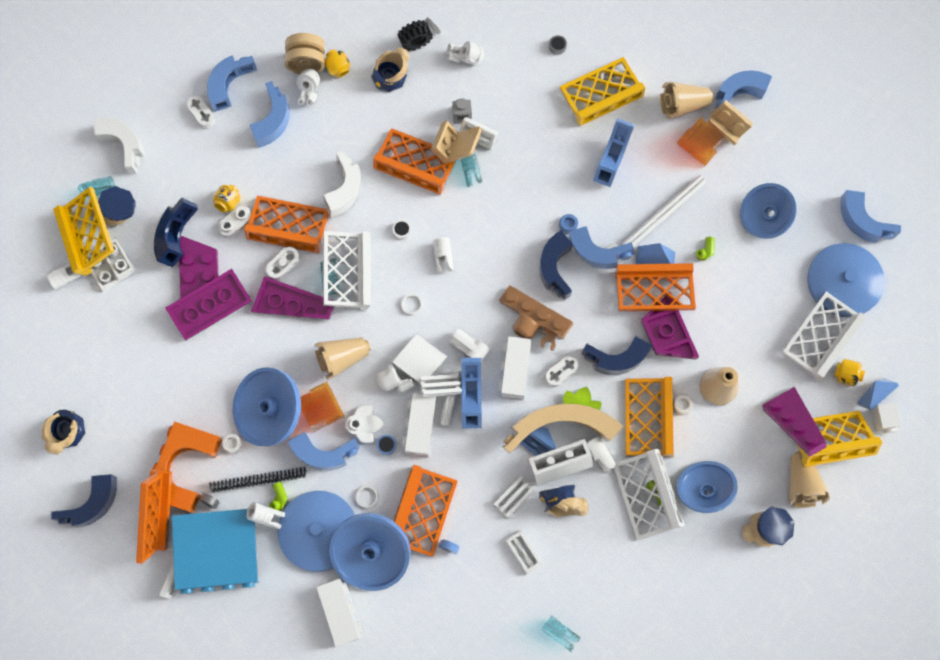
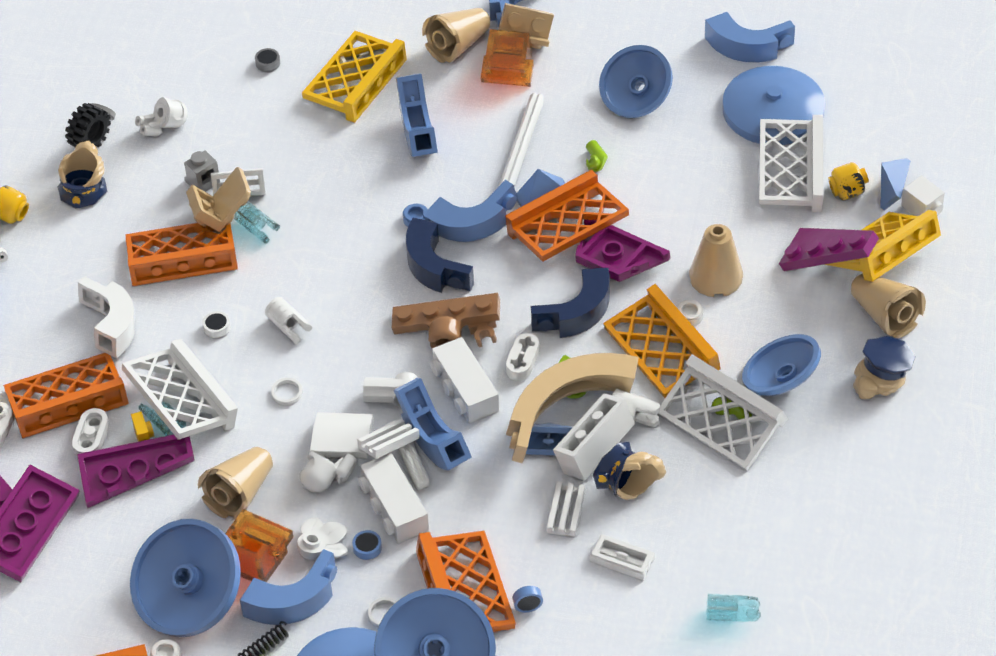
camera: 30 degrees left, 25 degrees down
(311, 281) = (142, 429): none -> yellow plate

